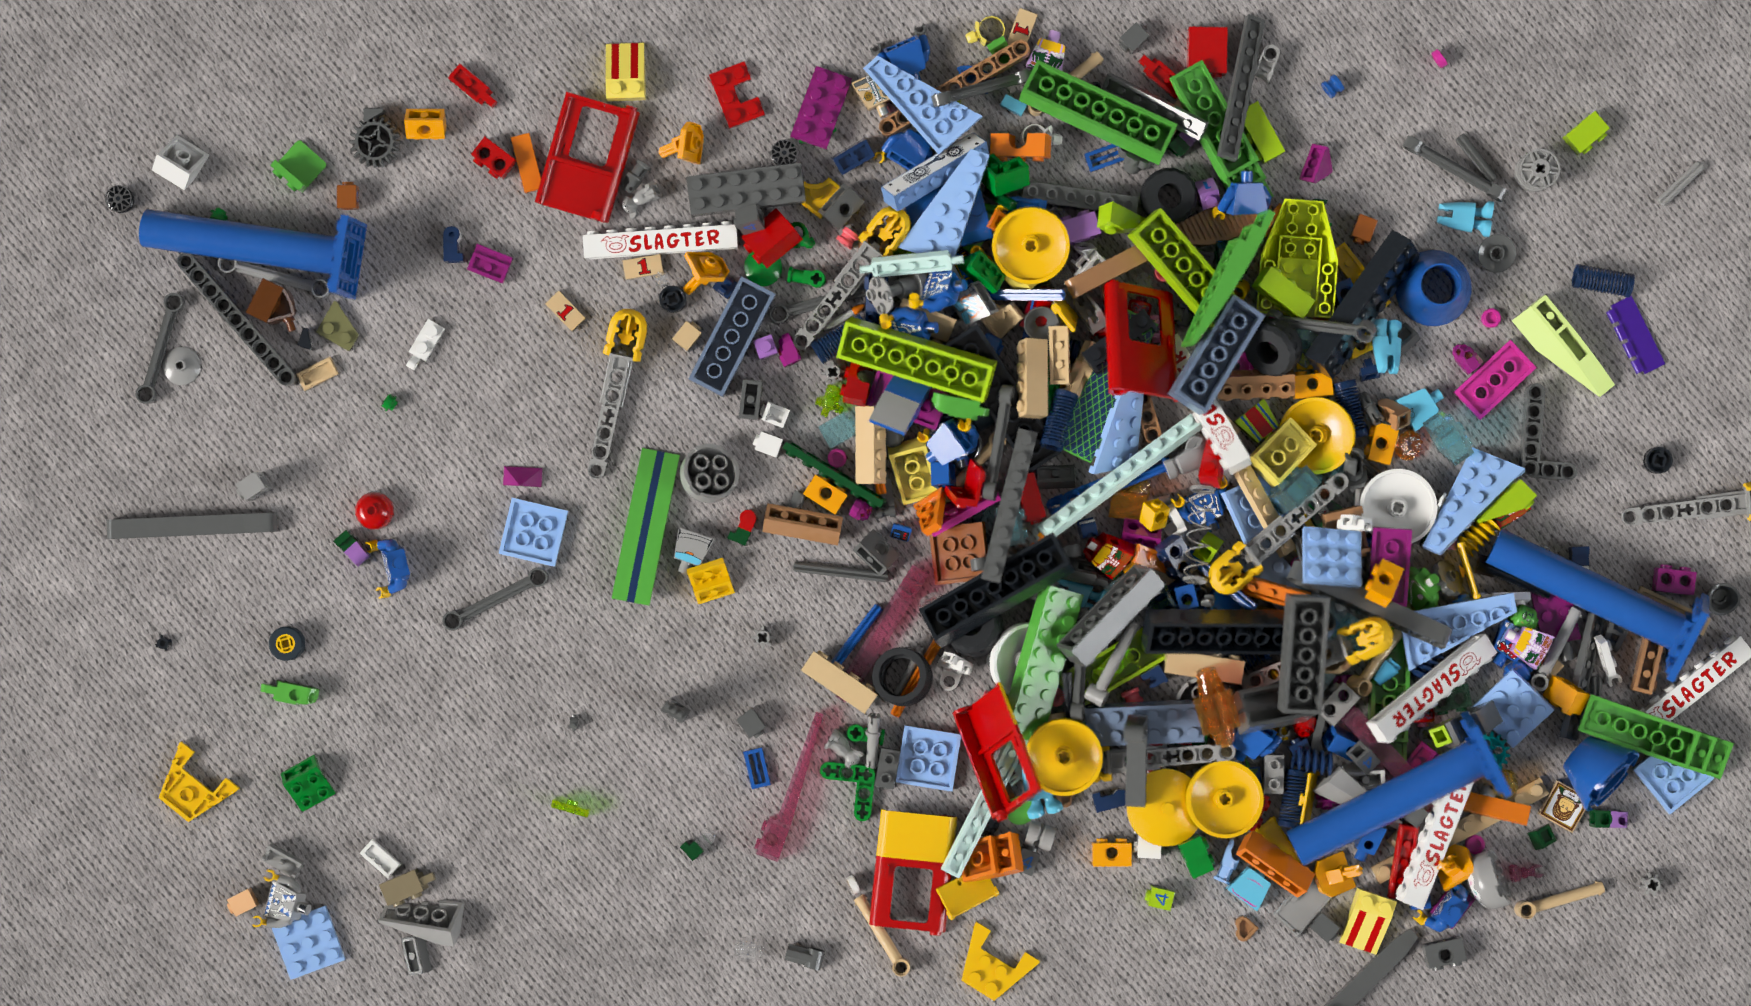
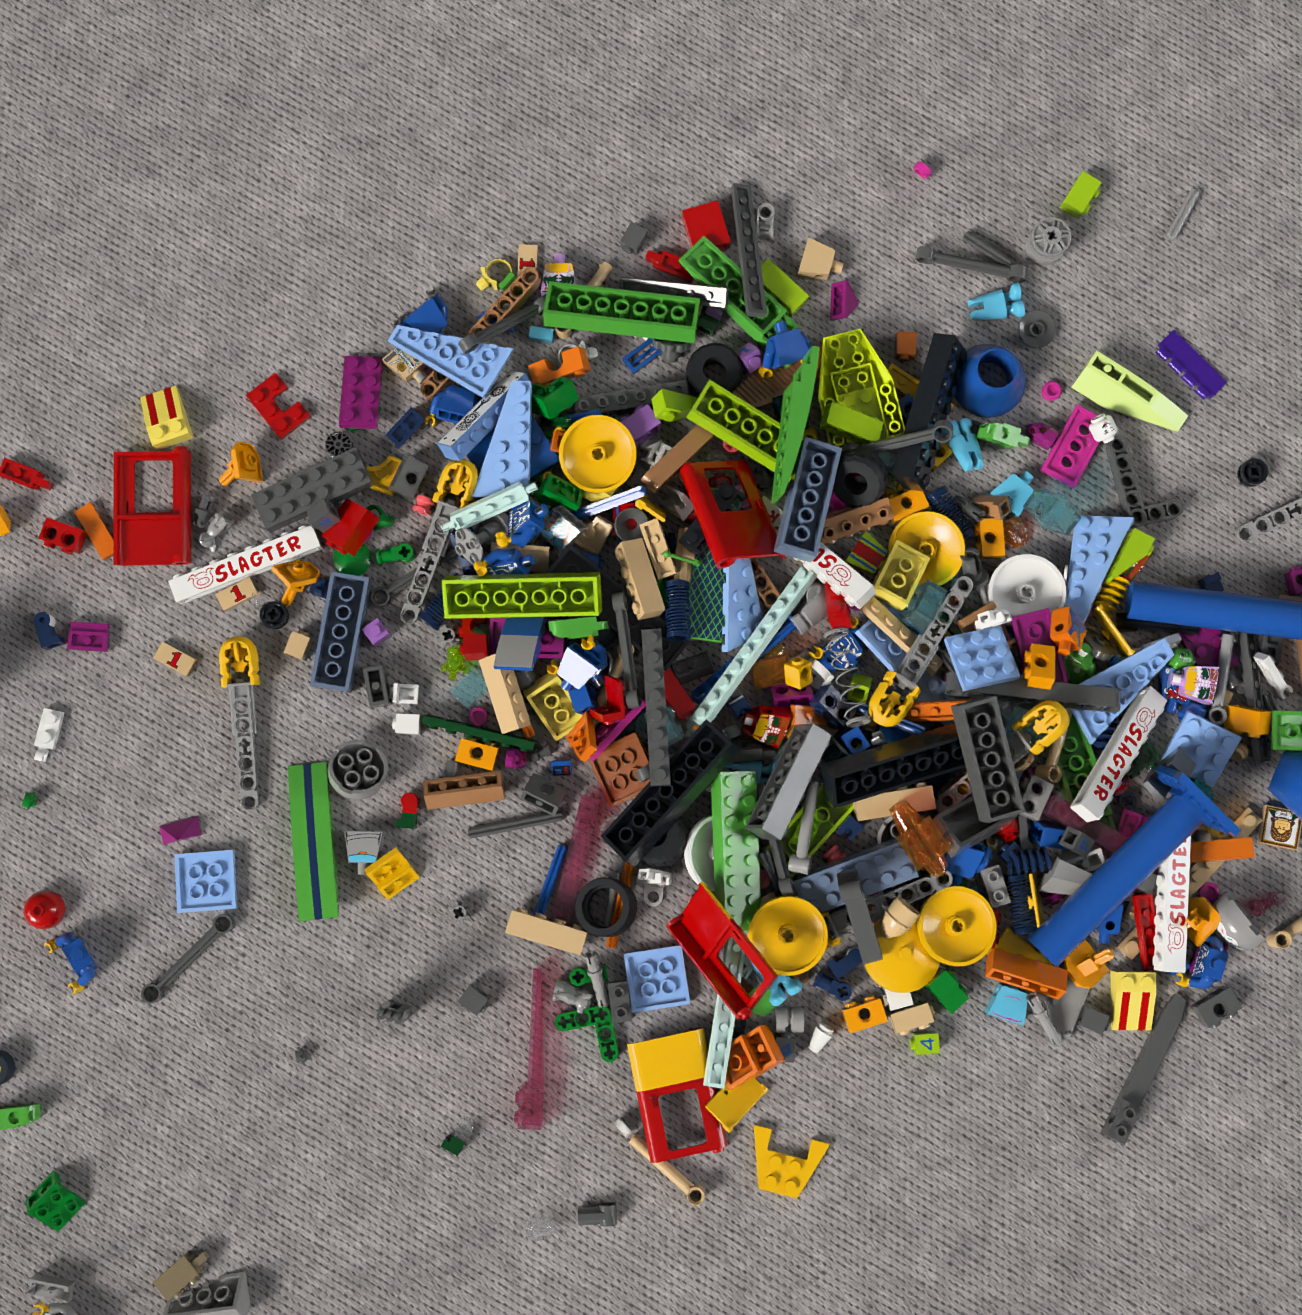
camera: 20 degrees left, 5 degrees down
(351, 547) = (31, 953): leg -> none
(380, 858) = (148, 1253): white plate -> none
(570, 806) = (321, 1140): clear neon green plate -> none
(753, 752) = (501, 1057): blue tile -> none
(787, 351) = (399, 630): magenta rock -> none
(843, 317) = (438, 586): white piece -> none
(1065, 860) = (820, 1037): none -> white cone
(1066, 363) = (667, 553): none -> bright green hinge
(1090, 817) = (831, 986): none -> dark blue connector
(1155, 870) = (910, 1017): none -> tan brick
(1172, 774) = (898, 918): none -> tan helmet
(1228, 864) = (979, 987): light blue piece -> none
(1245, 928) = (1016, 1045): medium nougat tile -> none
(1277, 904) = (1040, 1012): none -> light grey pin
(1306, 118) = (818, 261): none -> tan torso
(1332, 86) = (832, 225): blue wheel -> none
(1368, 371) = (955, 474): dark blue tile -> none
(1386, 671) = (1069, 752): dark azure cone -> none
(1421, 557) = (1066, 630): none -> orange torso
(1426, 347) = (1002, 435): none -> bright green piece
(1440, 734) = (1141, 795): lime brick -> none
(1526, 372) = (1103, 428): none -> white head
(1542, 837) = (1269, 864): dark green slope -> none
(1550, 723) = (1241, 752): none -> tan plate
(1626, 285) = (1120, 329): dark blue piece -> none

